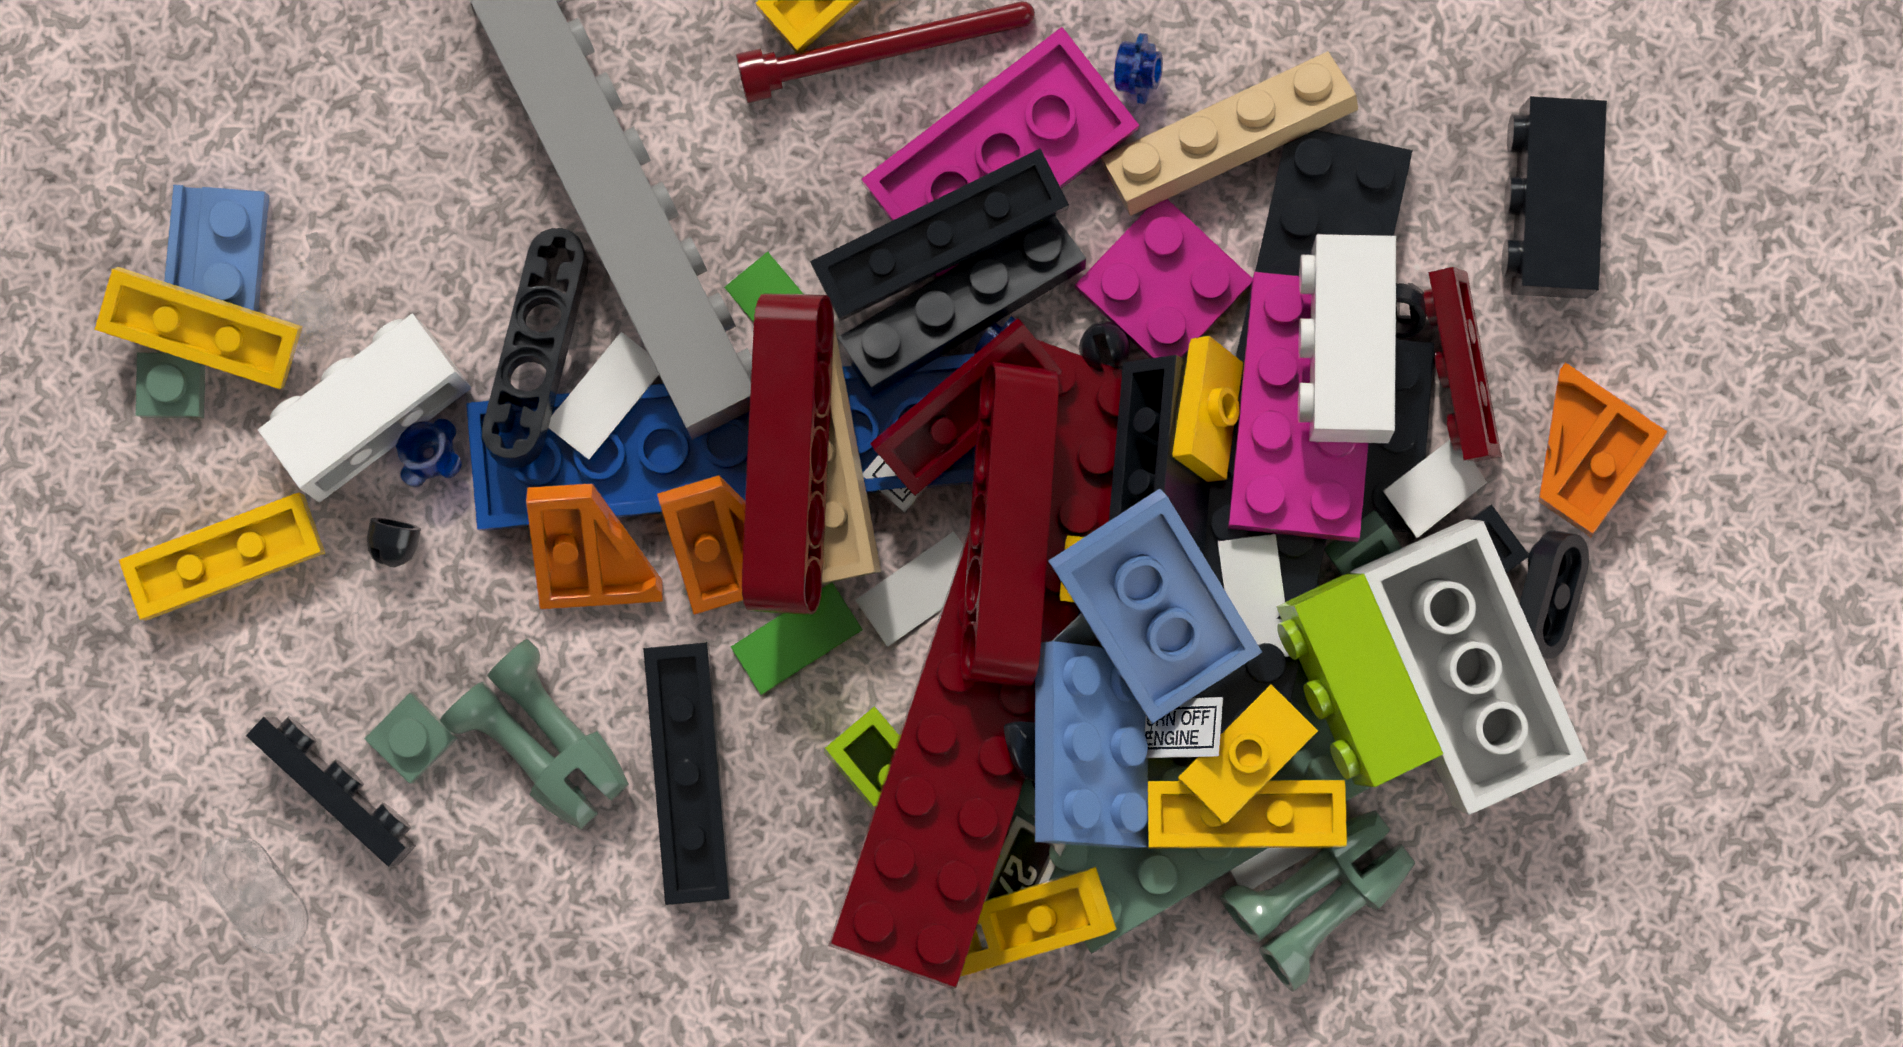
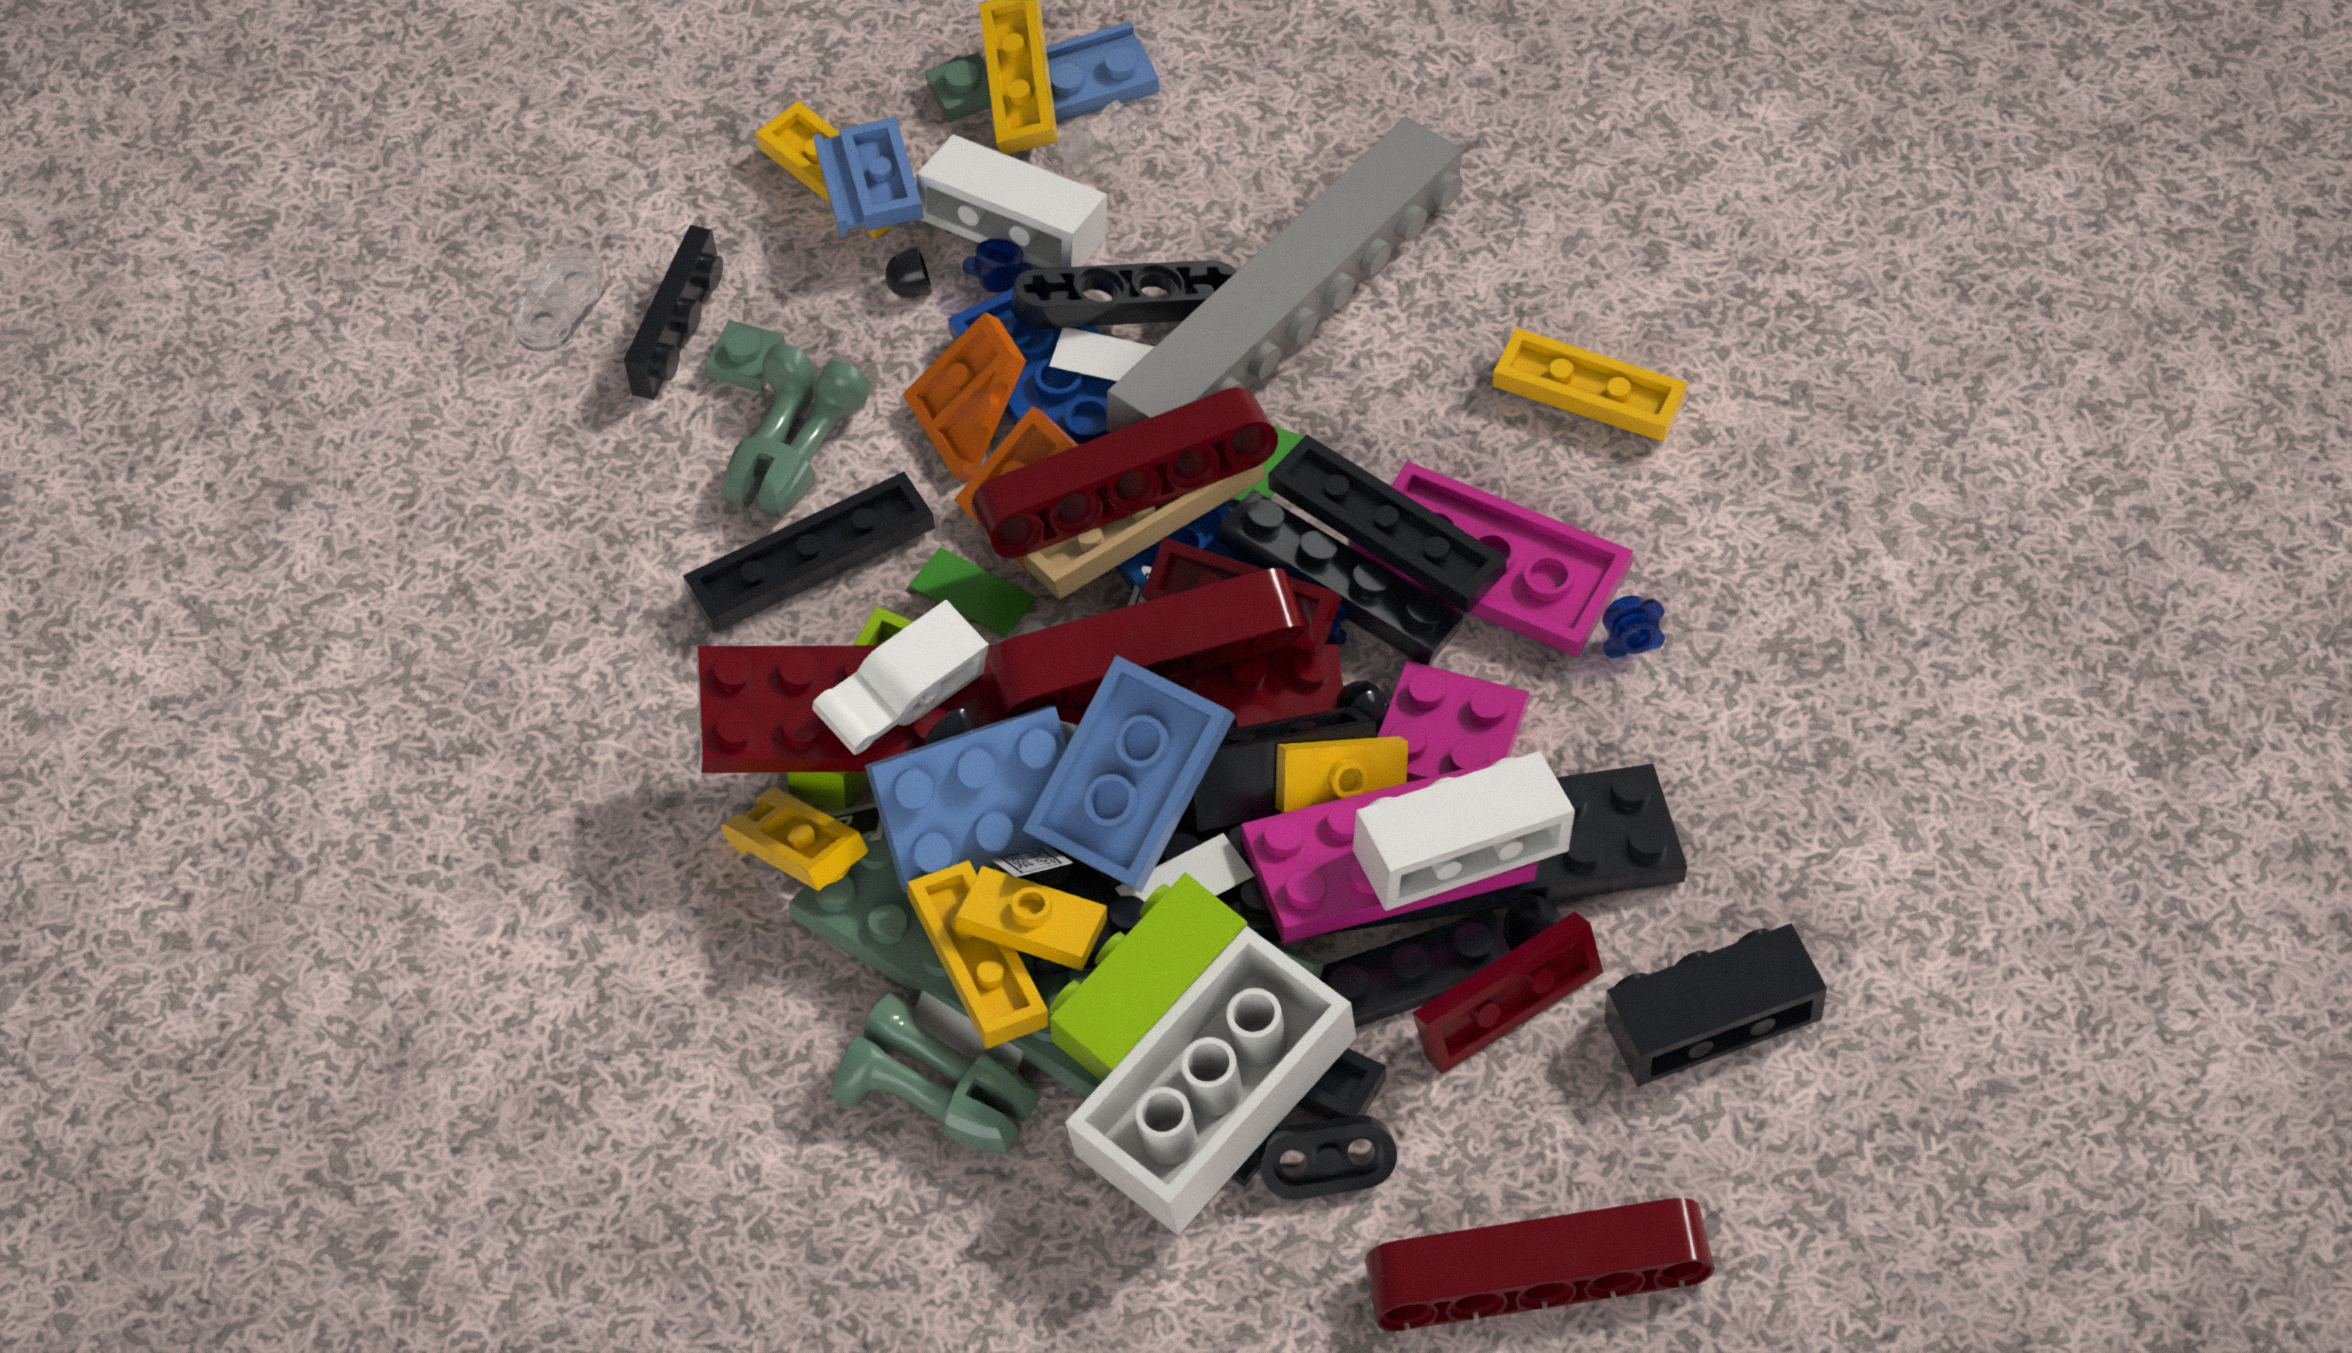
camera: 70 degrees right, 30 degrees down
(271, 535) = (868, 176): none -> medium blue plate
(765, 72) = (1458, 361): dark red piece -> none
(962, 770) = (904, 678): none -> white piece
(1229, 133) = (1617, 721): tan plate -> none
(1434, 488) = (1379, 1013): white sticker -> none
(1592, 450) = (1485, 1140): orange wing -> none
(1733, 467) = (1538, 1261): none -> dark red beam

